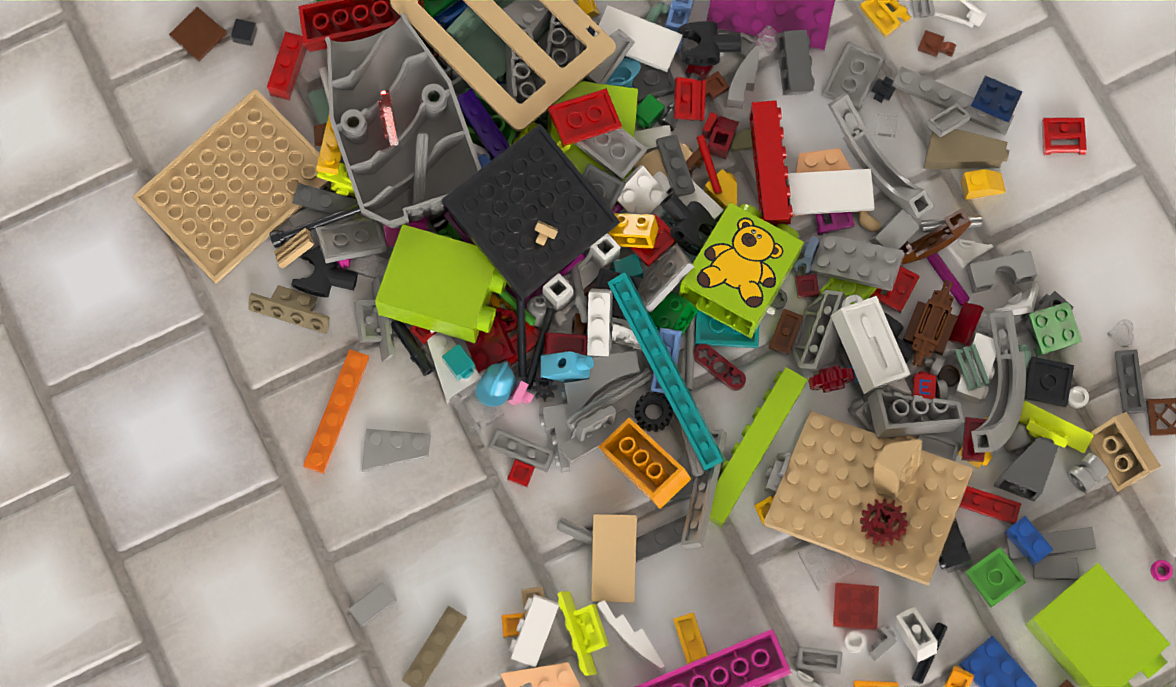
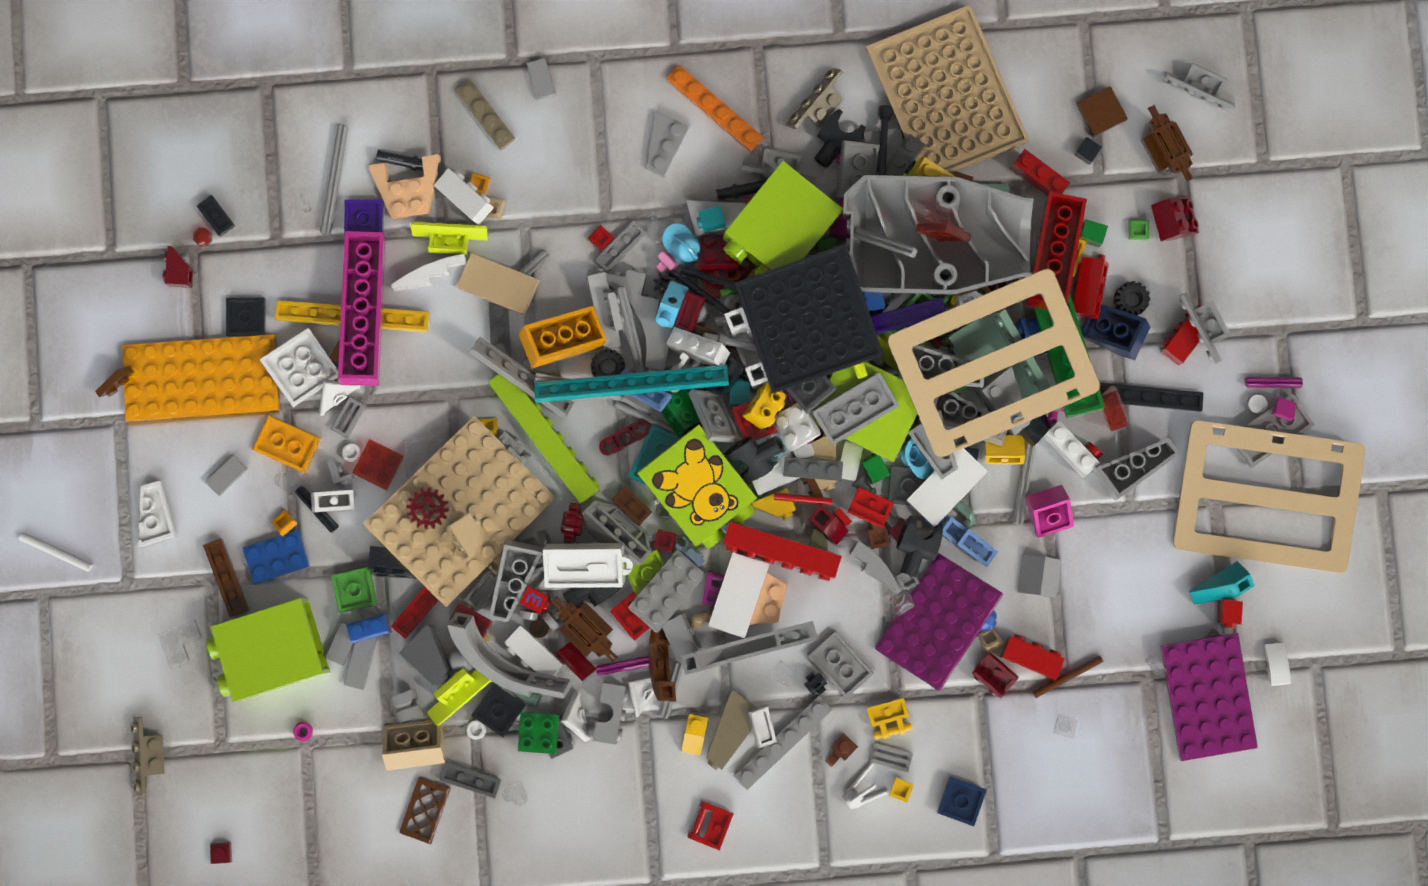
camera: 110 degrees right, 10 degrees up
(294, 248) = (871, 122): tan tile -> none
(545, 232) = (784, 322): tan tile -> none
(584, 117) = (878, 399): red tile -> none
(795, 62) = (869, 614): dark grey brick -> none
(965, 350) = (516, 645): sand green tile -> none
(996, 98) = (767, 780): dark blue plate -> none

